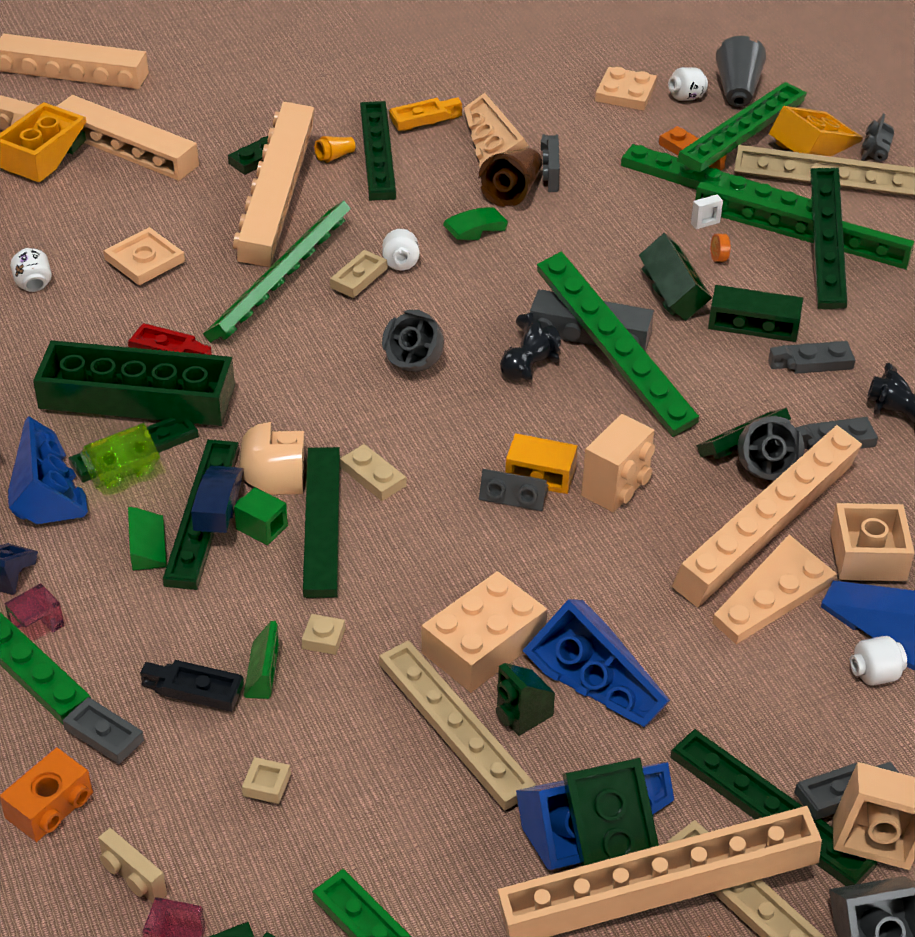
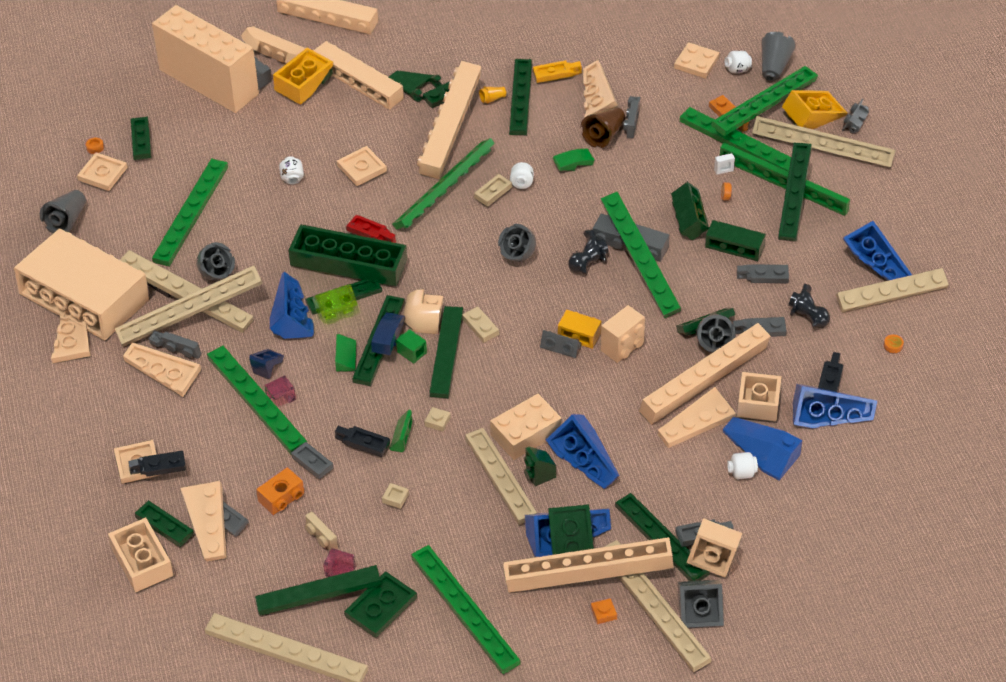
camera: 10 degrees right, 5 degrees up
(212, 143) = (413, 81): none -> dark green flag

